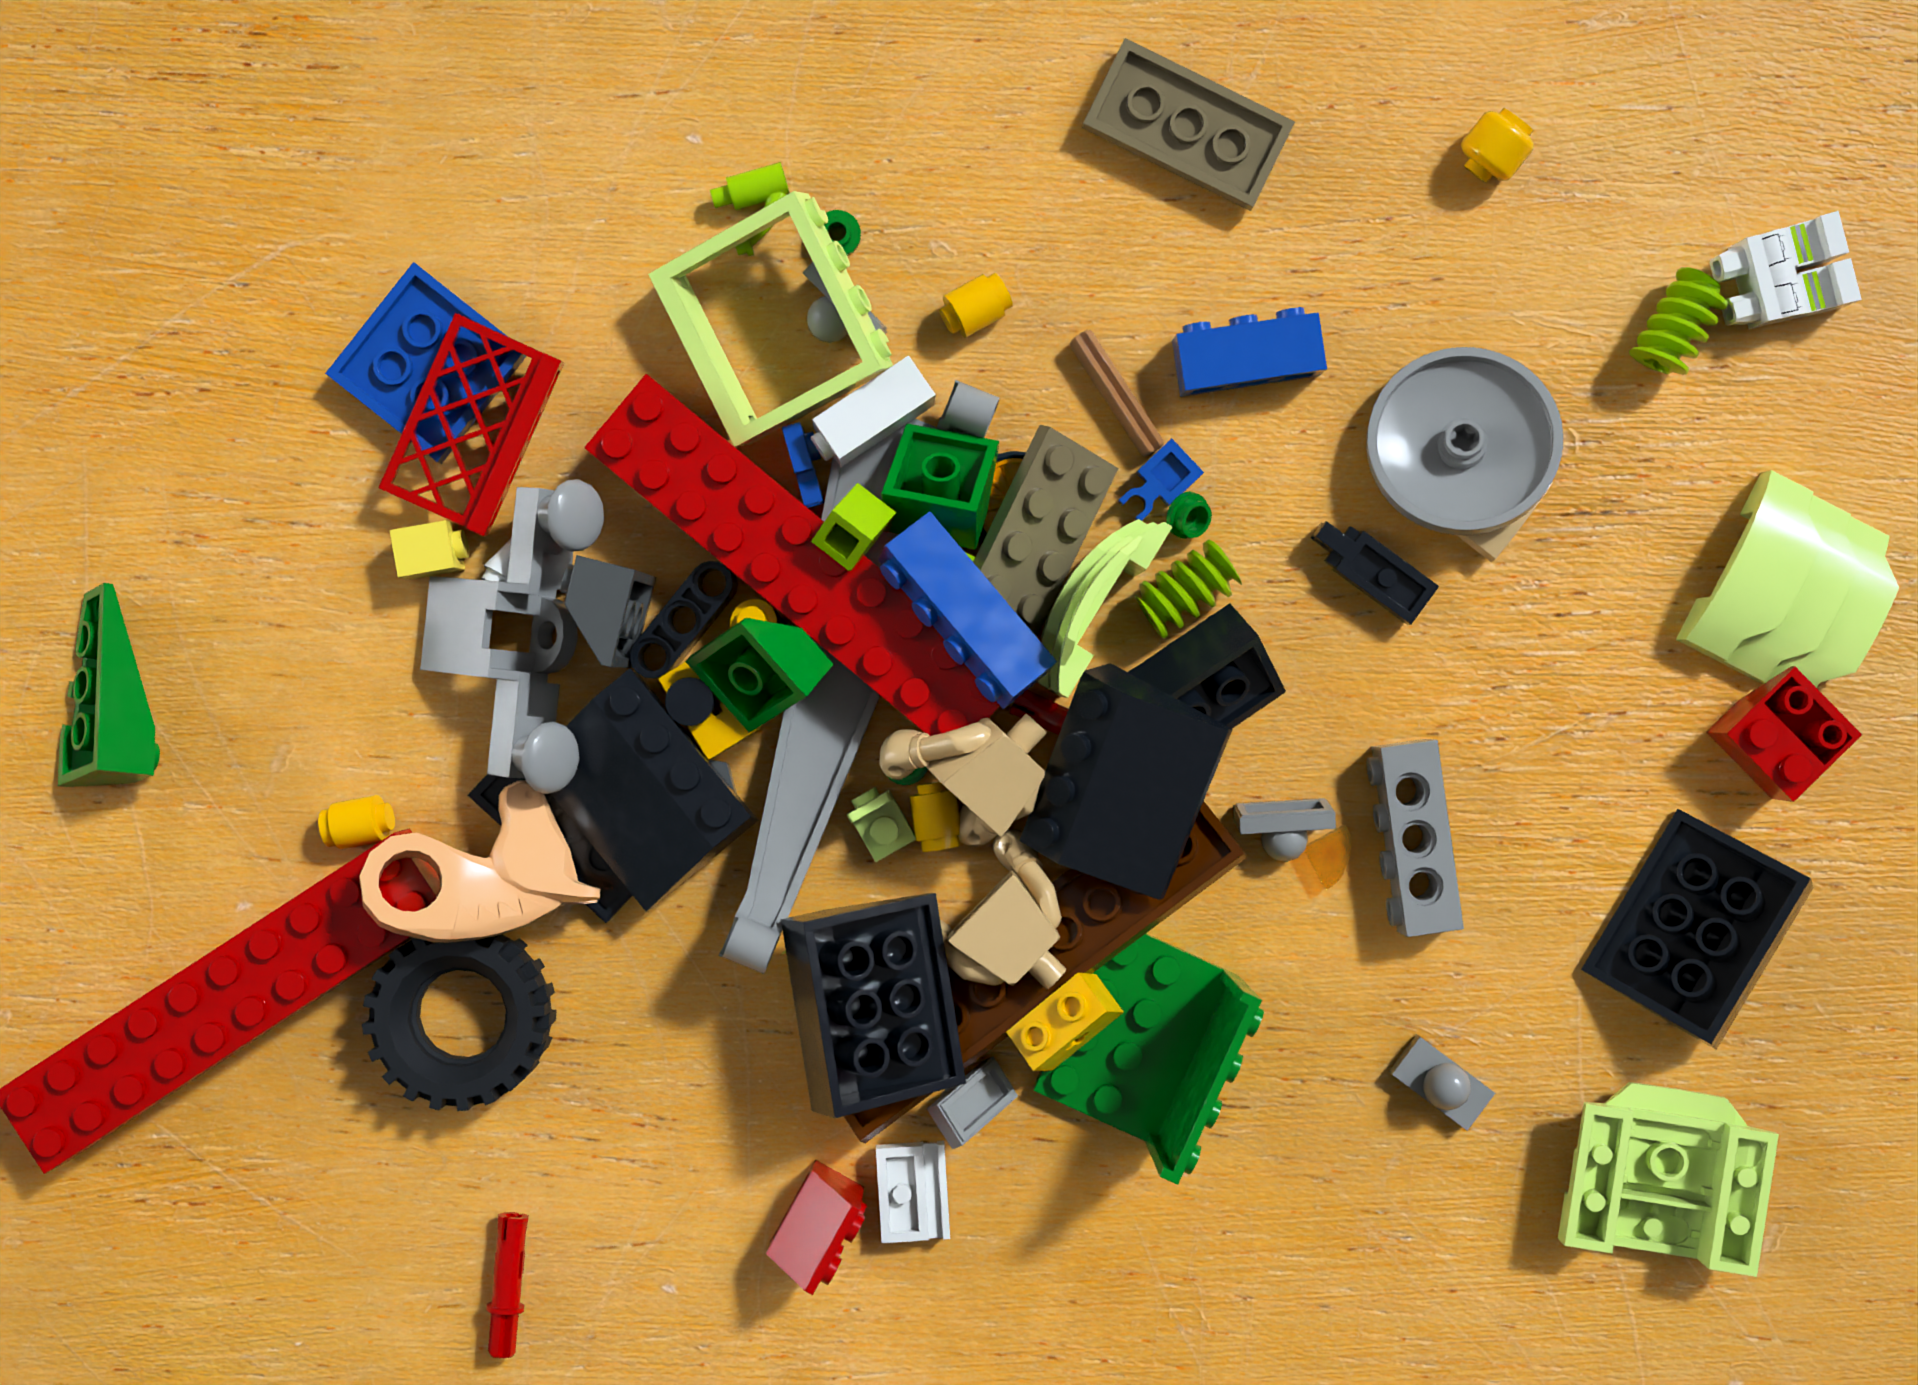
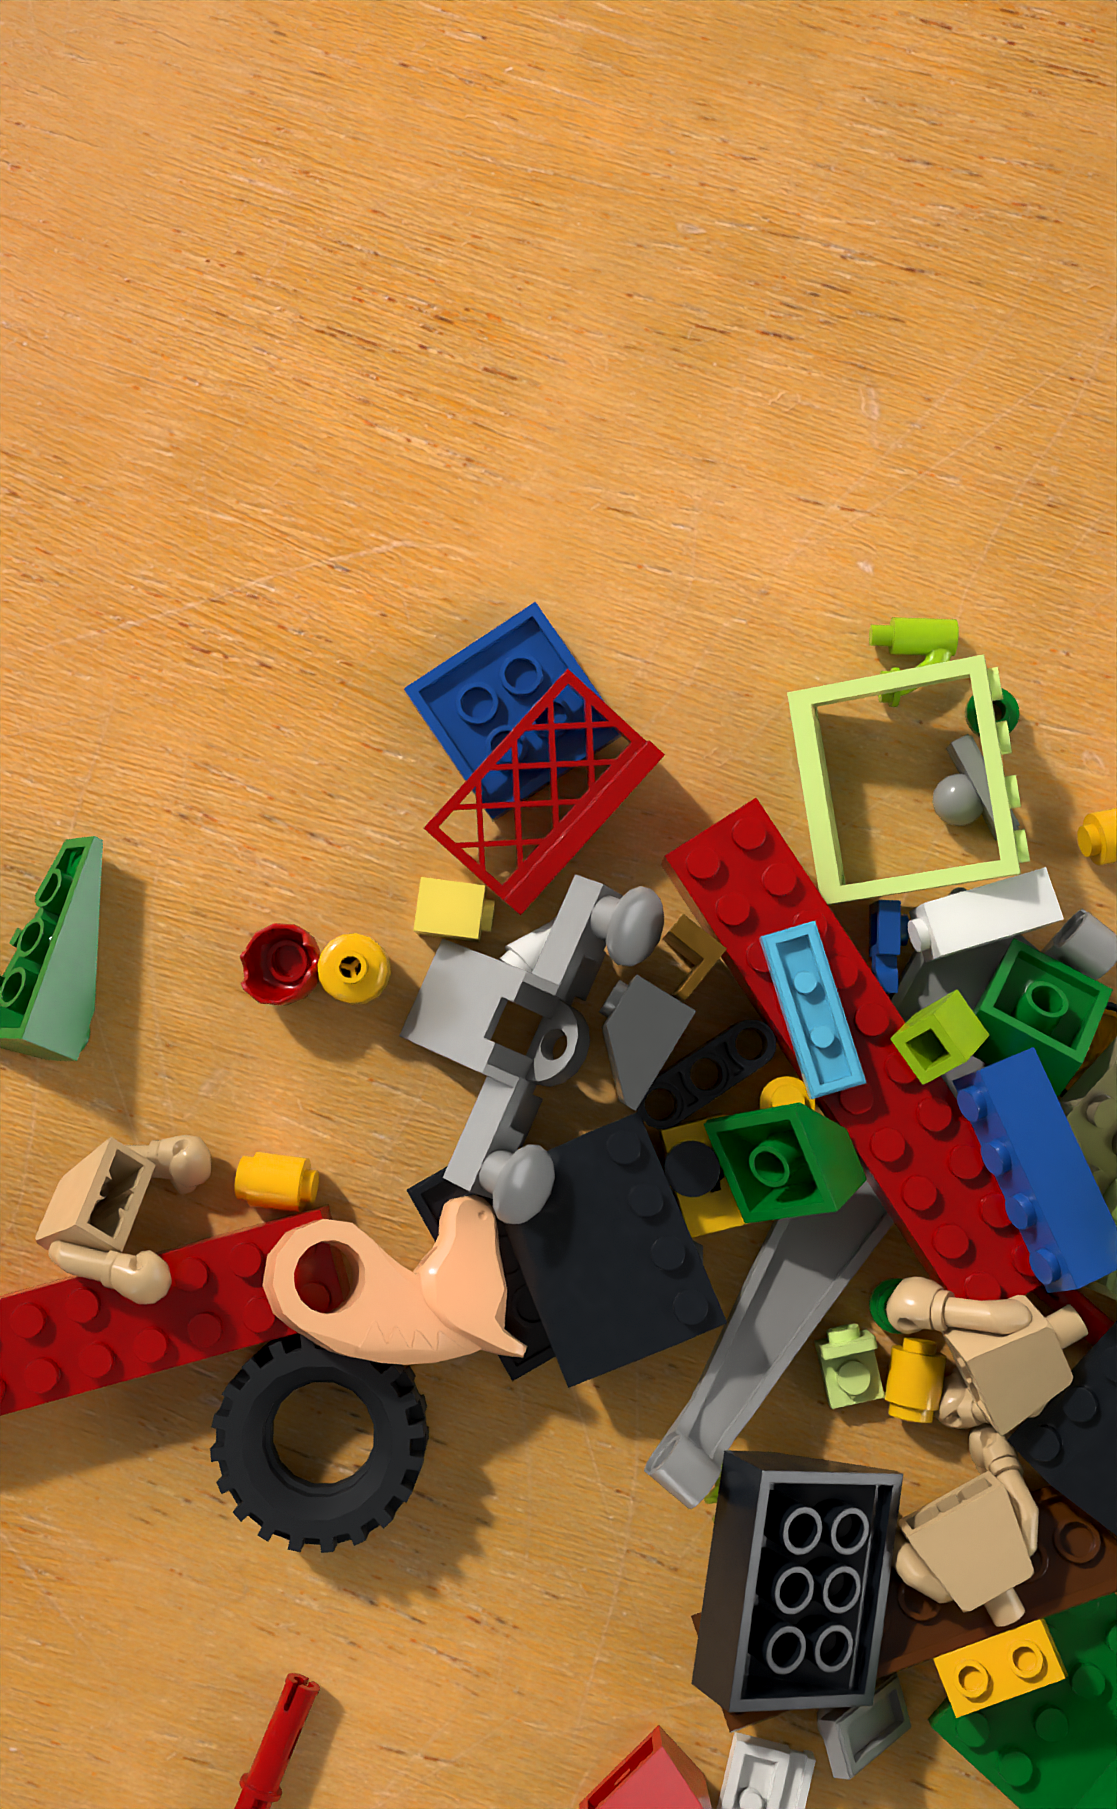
camera: 15 degrees right, 5 degrees down
(212, 880) = (99, 1204): none -> tan torso
(299, 641) = (280, 964): none -> red hair
(376, 627) = (359, 988): none -> yellow head
(650, 527) = (695, 946): none -> pearl gold panel
(741, 538) = (812, 1010): none -> medium azure tile

